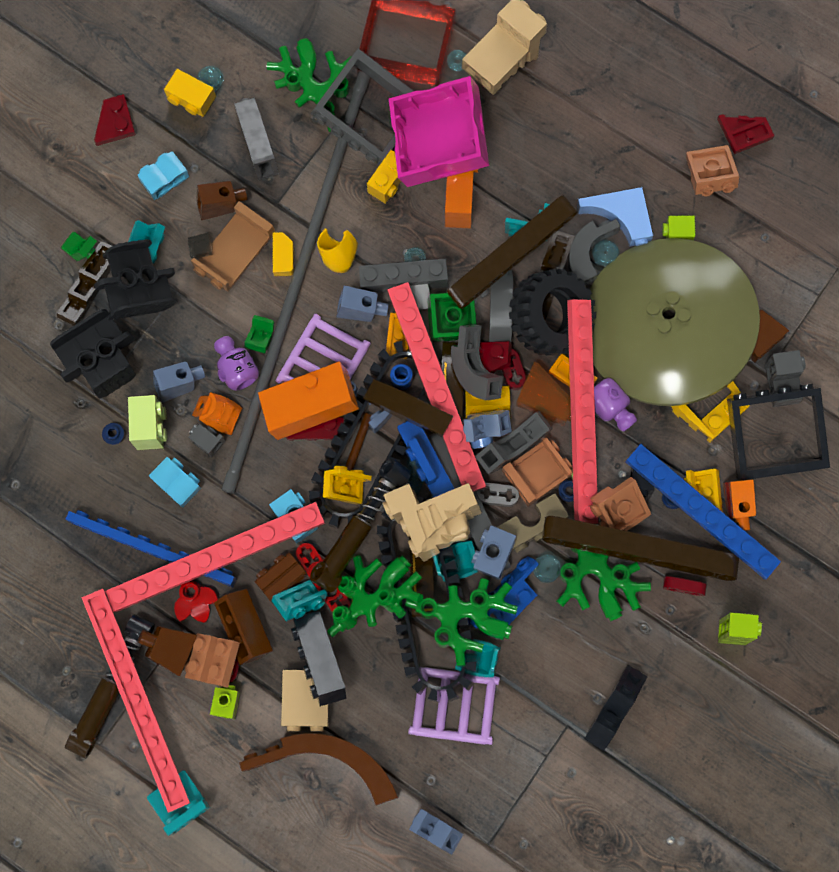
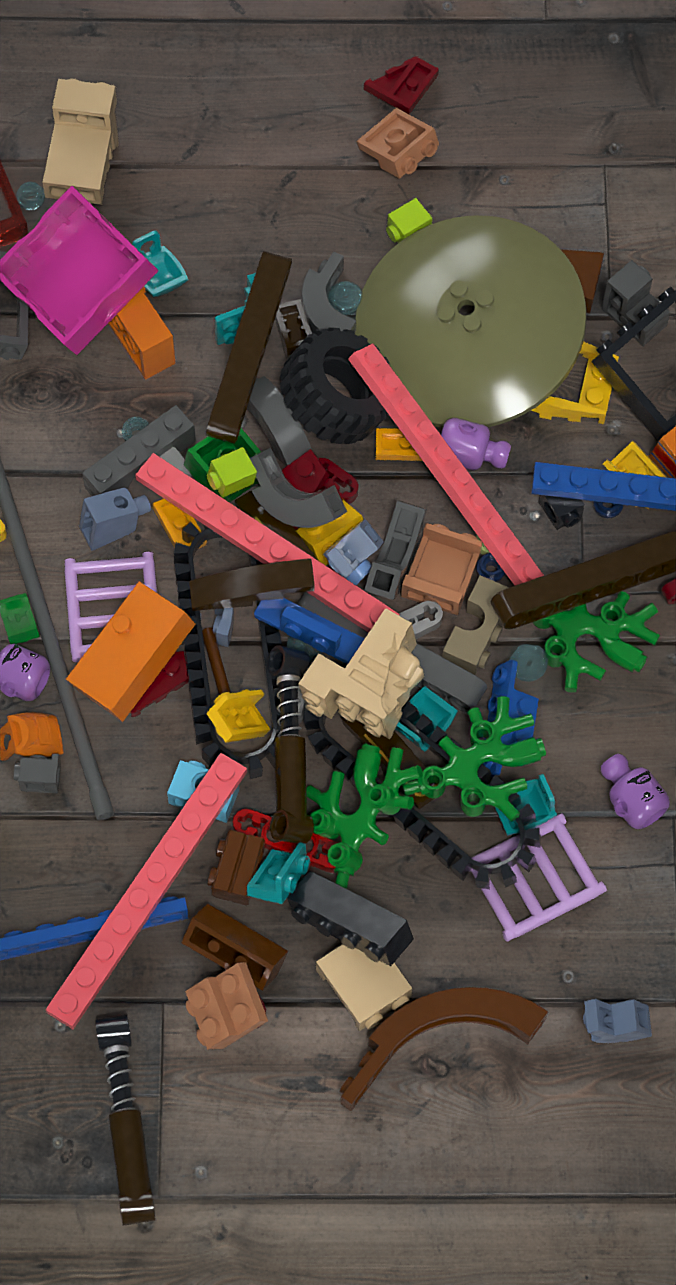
camera: 40 degrees left, 10 degrees down
(136, 700) = (170, 1108): coral plate -> none
(168, 648) = (165, 1028): reddish brown torso -> none
(175, 481) = (36, 842): medium azure brick -> none
(184, 815) = (300, 1194): teal bracket -> none
(194, 605) = (159, 965): red plate -> none
(225, 702) = (274, 1046): lime brick -> none
(335, 254) = (47, 481): yellow piece -> none
(385, 179) = (43, 362): yellow brick -> none
(401, 370) = (216, 559): blue brick -> none
(444, 327) = (231, 472): none -> lime brick
(494, 566) = (461, 658): sand blue brick -> none
(501, 158) = (170, 273): none -> teal piece
(545, 395) = (387, 480): clear orange slope -> none
(551, 697) = (634, 793): none -> medium lavender piece
(621, 506) = (560, 540): nougat plate -> none
(626, 207) = (337, 233): light blue arch -> none

